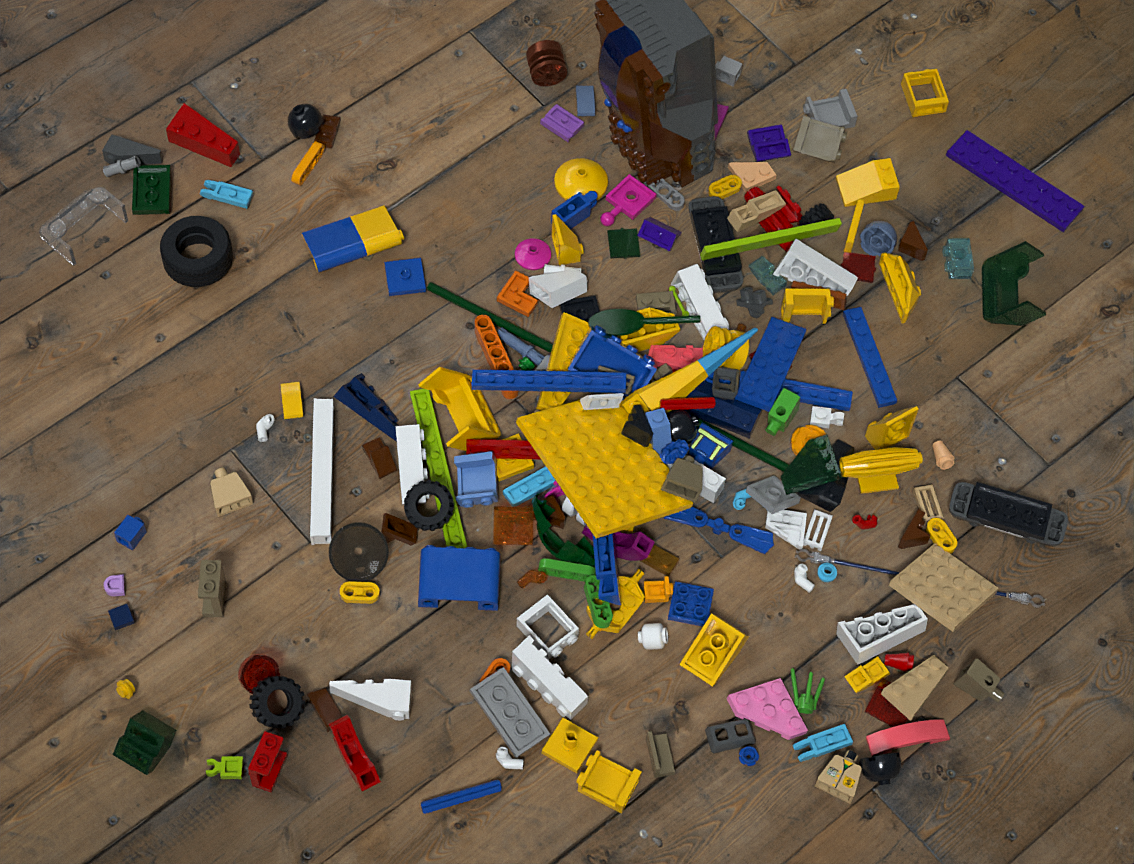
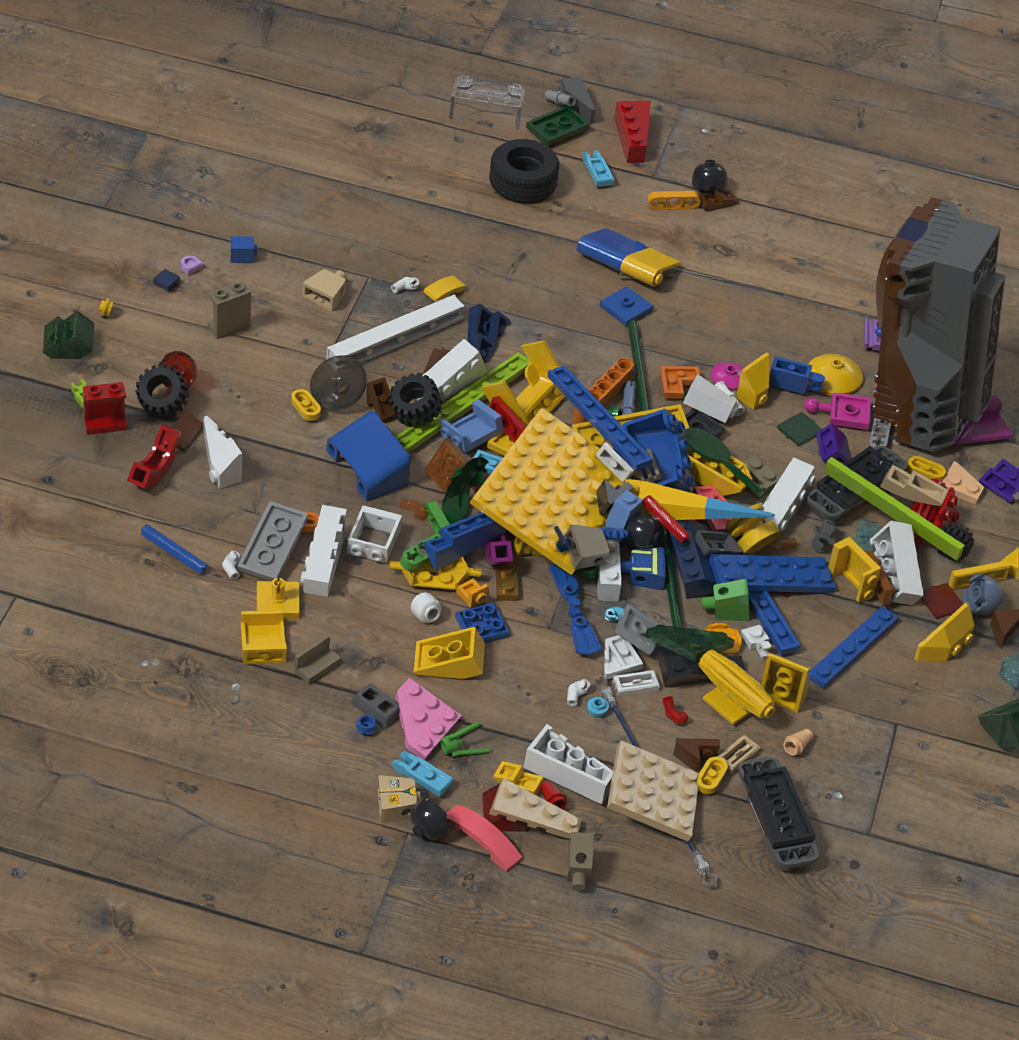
camera: 55 degrees right, 15 degrees down
(672, 493) = (563, 543): none -> hand

